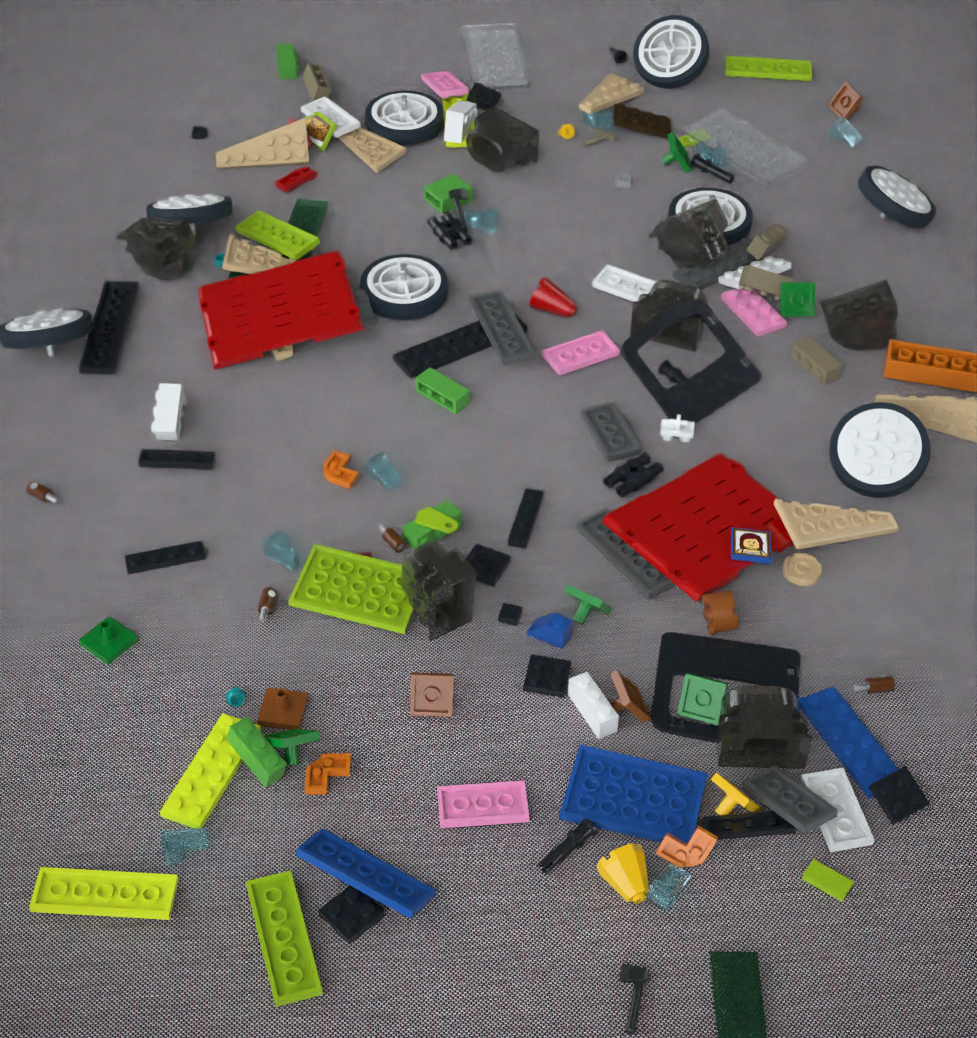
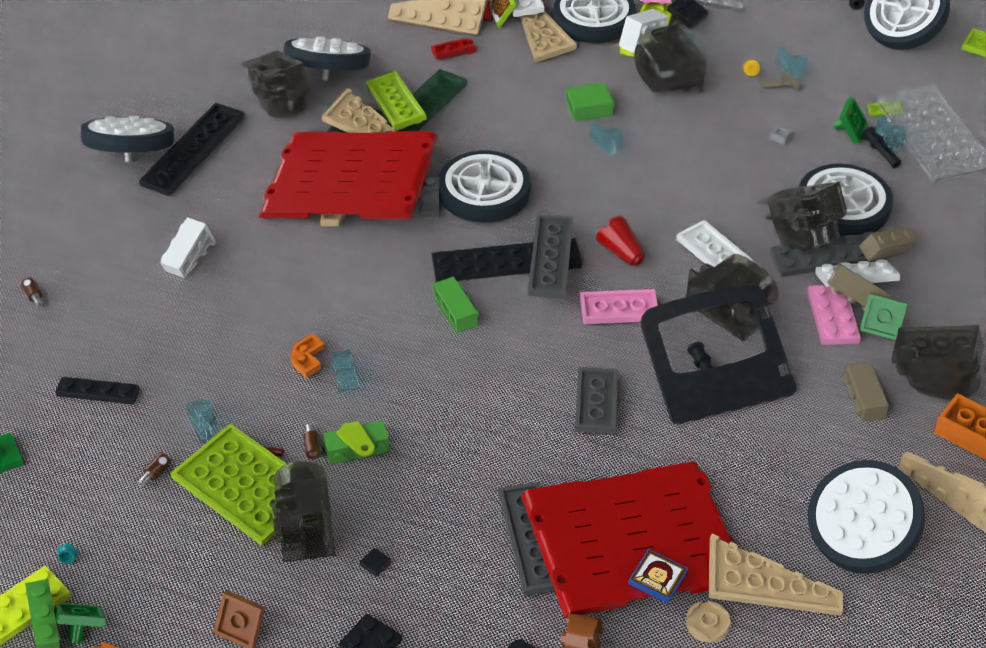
camera: 25 degrees right, 0 degrees up
(177, 459) = (168, 296): black plate -> none
(282, 709) = (102, 581): dark orange tile -> none
(449, 230) = (567, 140): black pin -> none
(456, 195) = (590, 105): pearl dark grey piece -> none
(488, 564) = (381, 501): black plate -> none
(525, 518) = (454, 465): black plate -> none
(552, 629) = (403, 595): blue slope -> none
(586, 603) = (452, 578): green tile -> none
(610, 91) = (822, 37): tan wing -> none
(633, 474) = (590, 455): black pin -> none
(641, 121) = (835, 76): dark brown plate -> none
(678, 428) = (665, 419): white hips -> none

